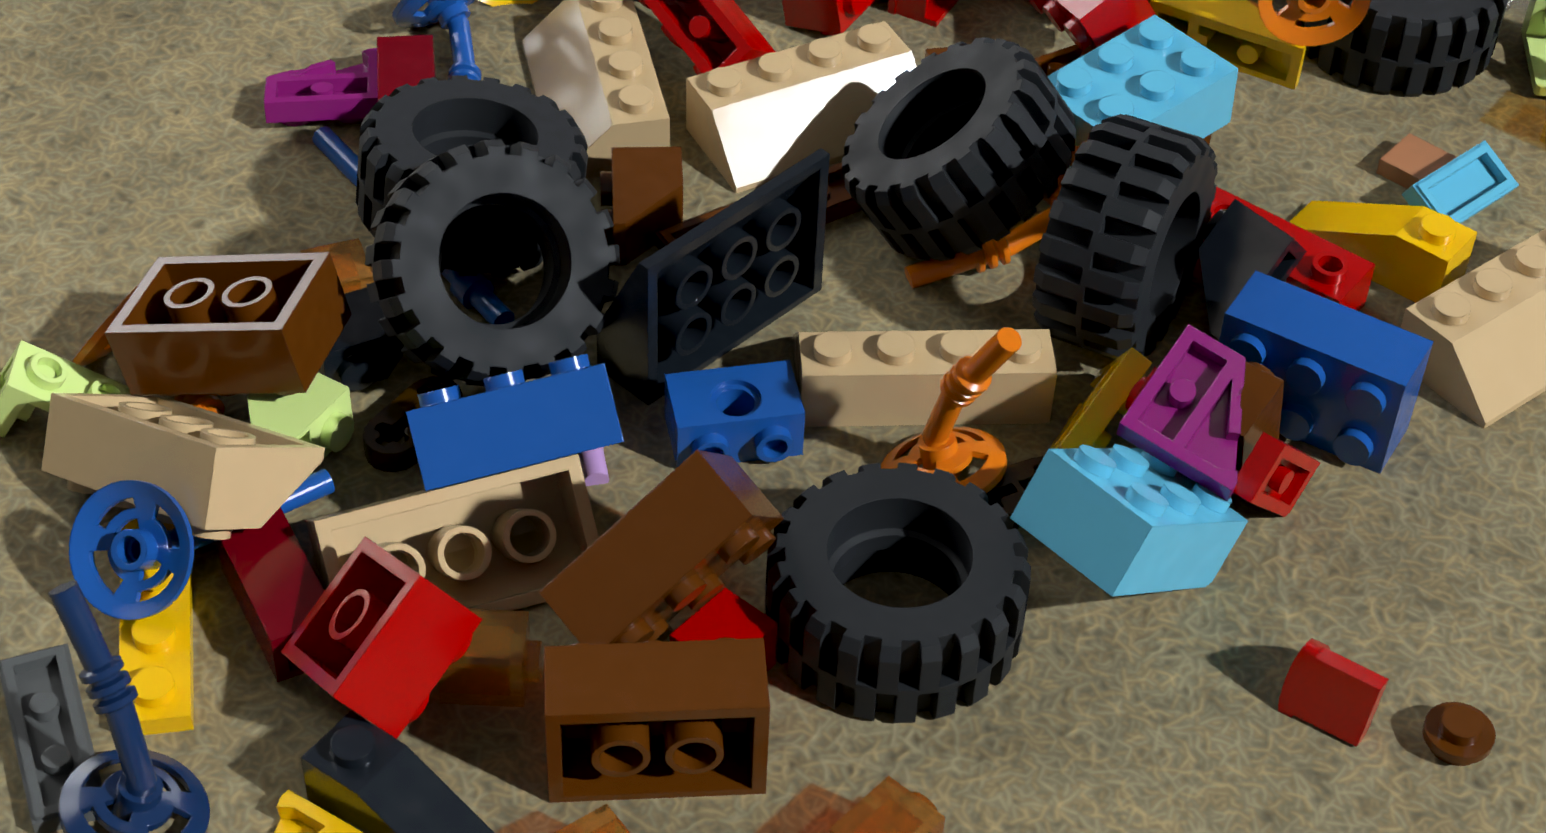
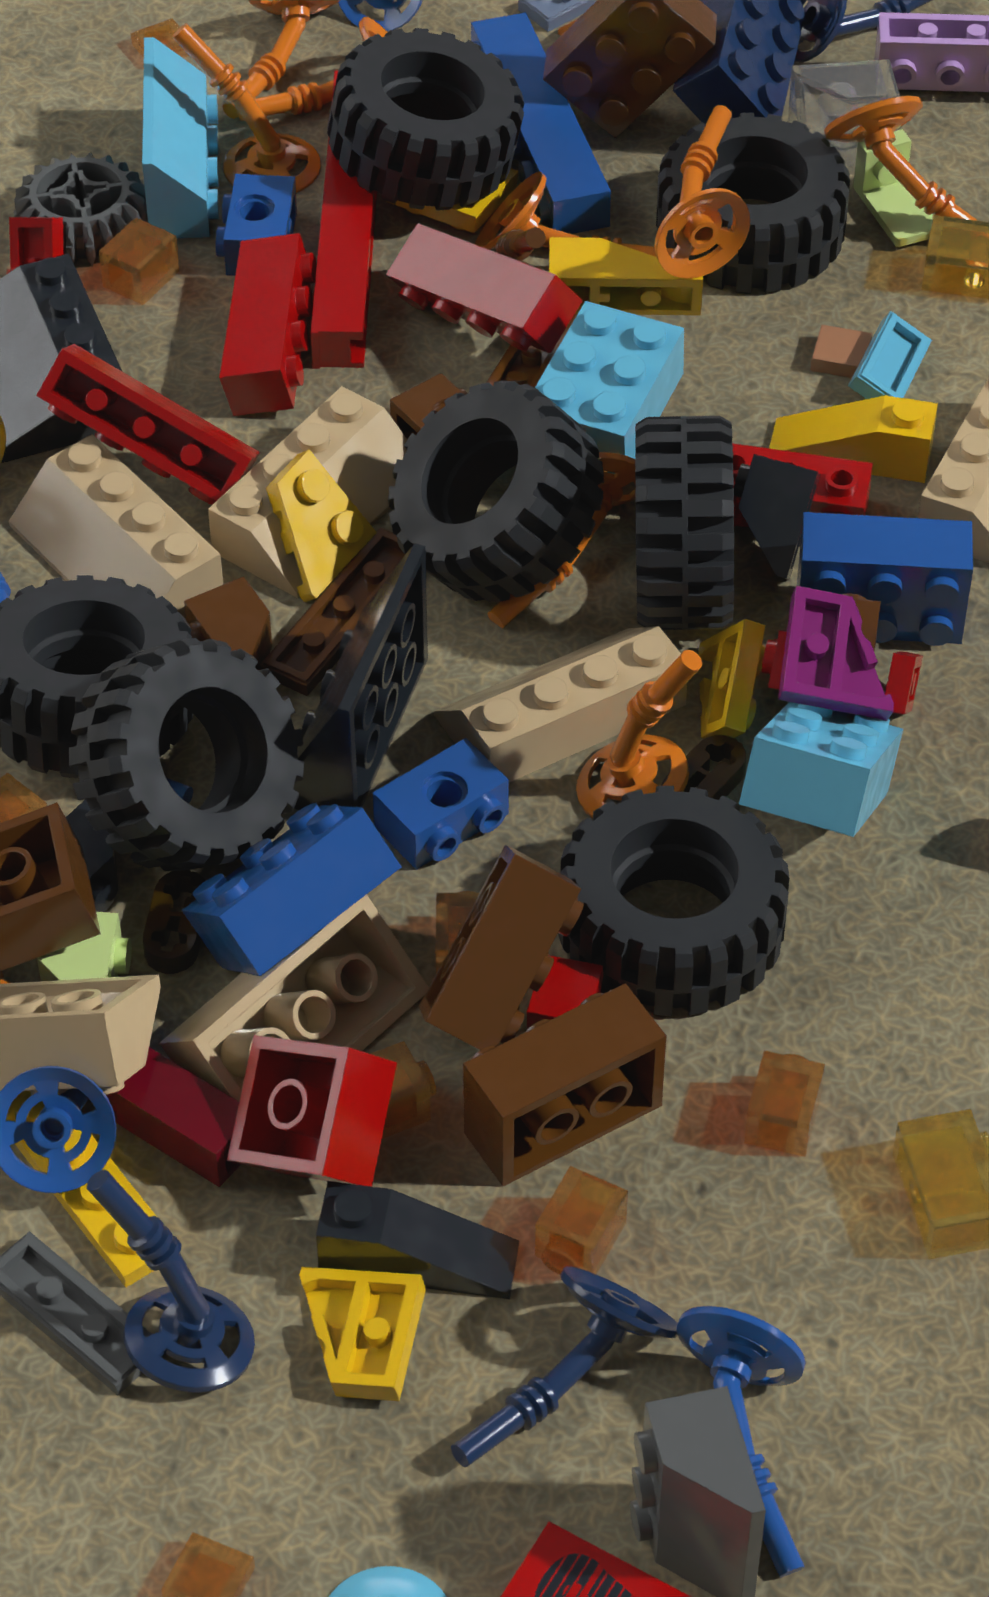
camera: 25 degrees left, 5 degrees up
(782, 122) = (316, 522): none -> yellow wing

